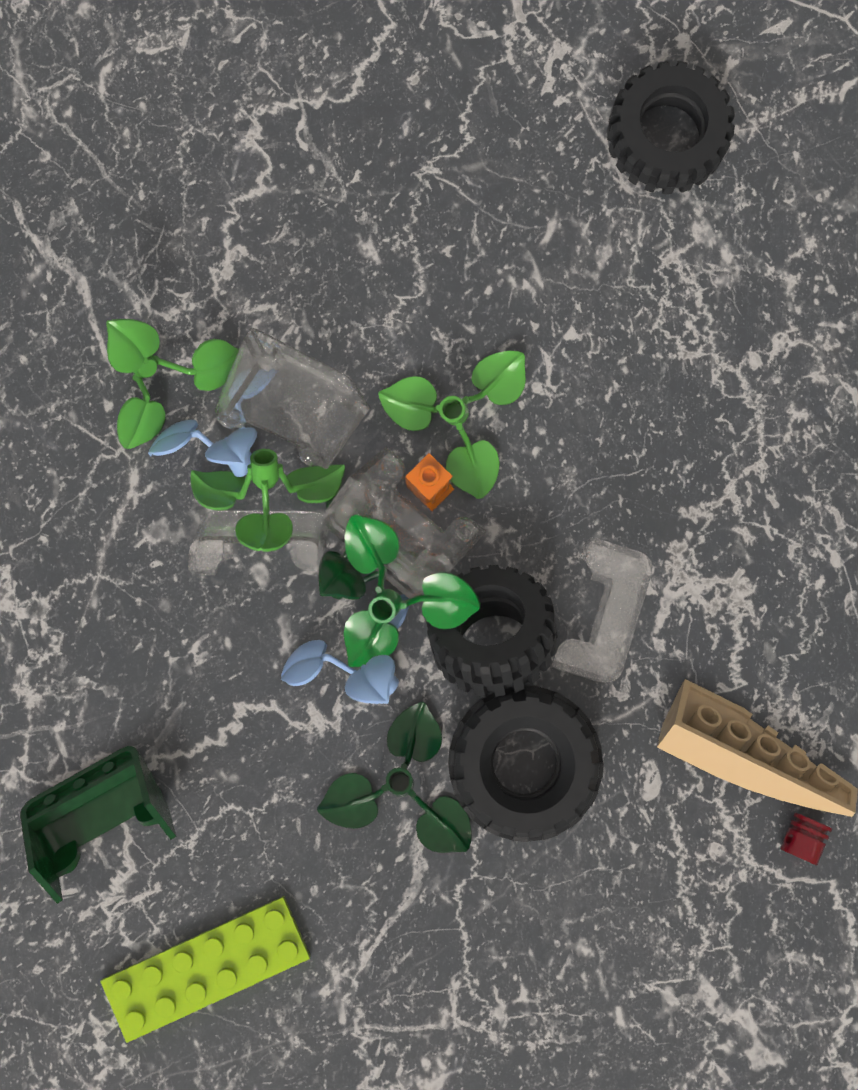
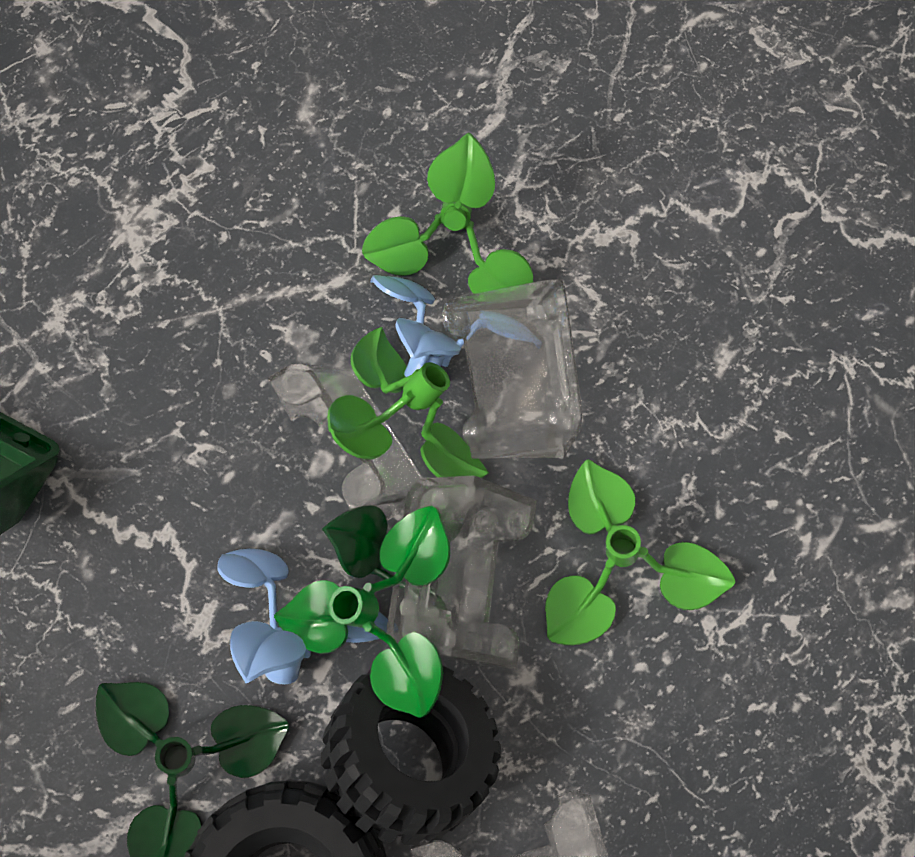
camera: 55 degrees right, 10 degrees down
(429, 482) = (529, 571): orange window -> none

